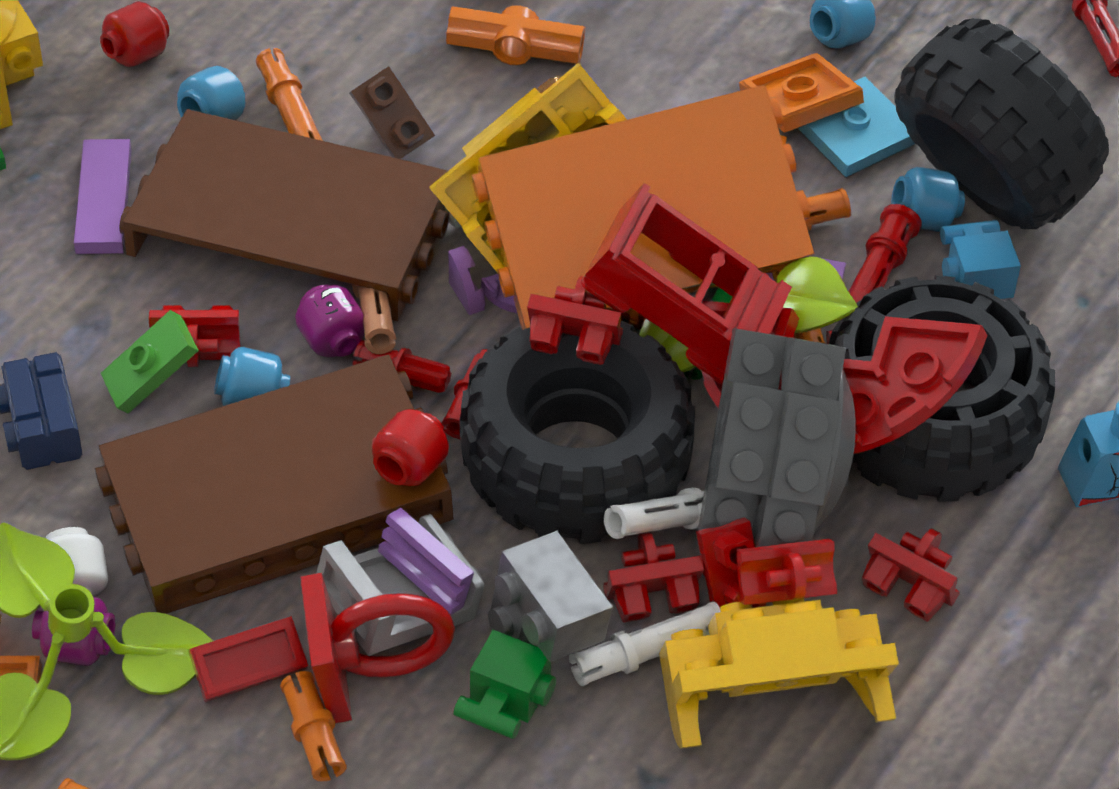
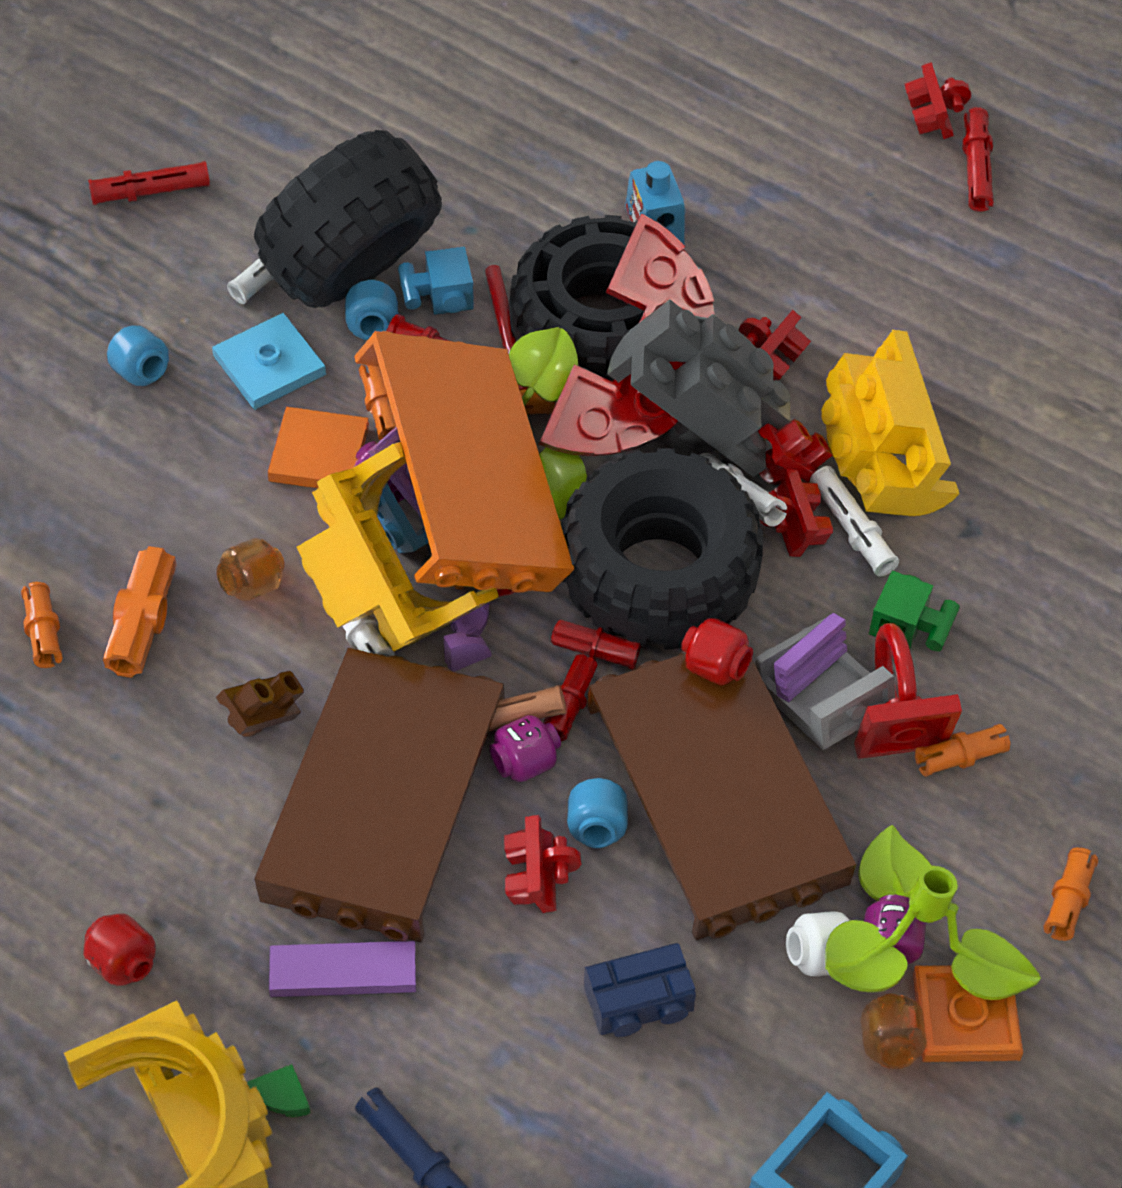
camera: 90 degrees left, 5 degrees up
(149, 361) = (585, 893): bright green plate -> none
(212, 92) = (220, 870): dark azure head -> none
(248, 658) = (901, 801): red tile -> none
(285, 93) = (215, 806): orange pin -> none
(548, 598) = (850, 560): flat silver brick -> none
(575, 314) = (599, 506): red hips -> none
(629, 283) = (558, 449): red piece -> none
(786, 571) = (828, 393): red hips -> none
(807, 90) = (234, 391): orange tile -> none

